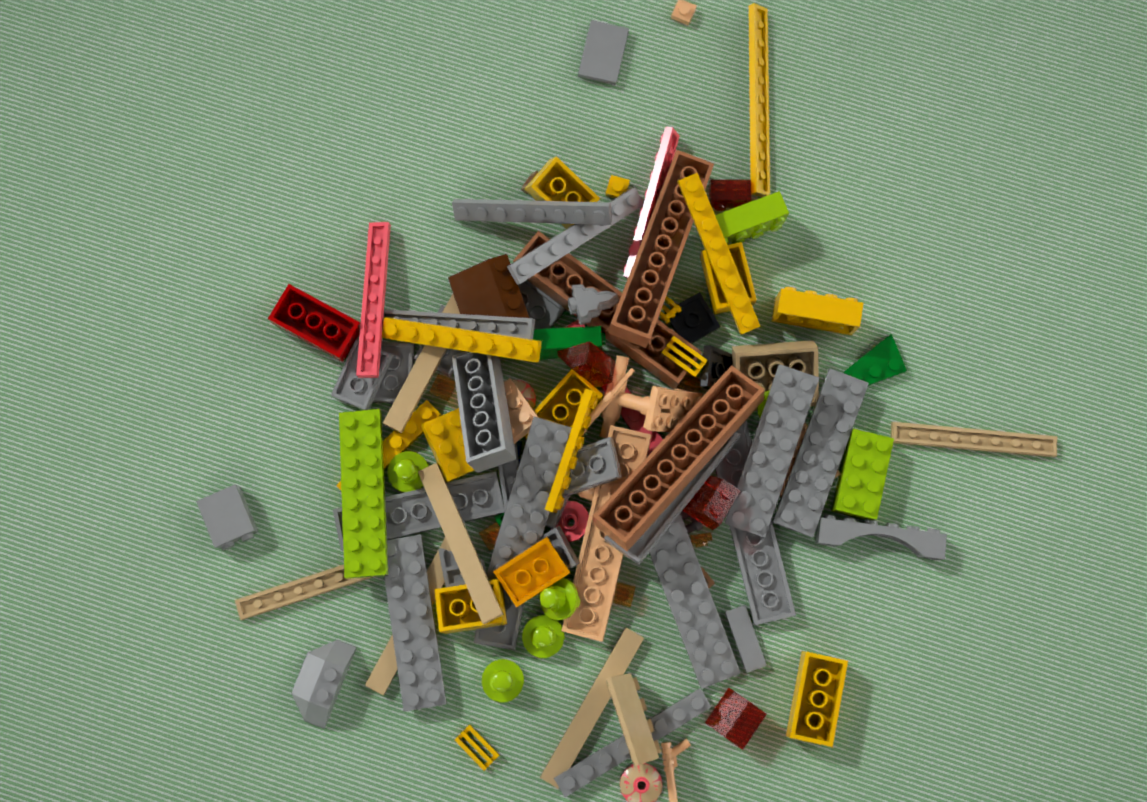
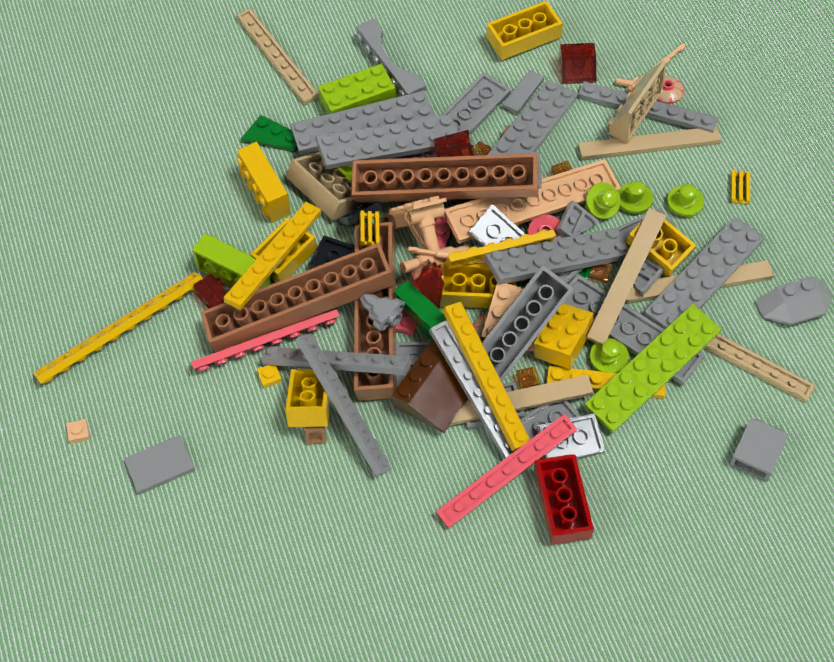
camera: 125 degrees left, 20 degrees down
(531, 571) = (602, 222): light orange plate -> none

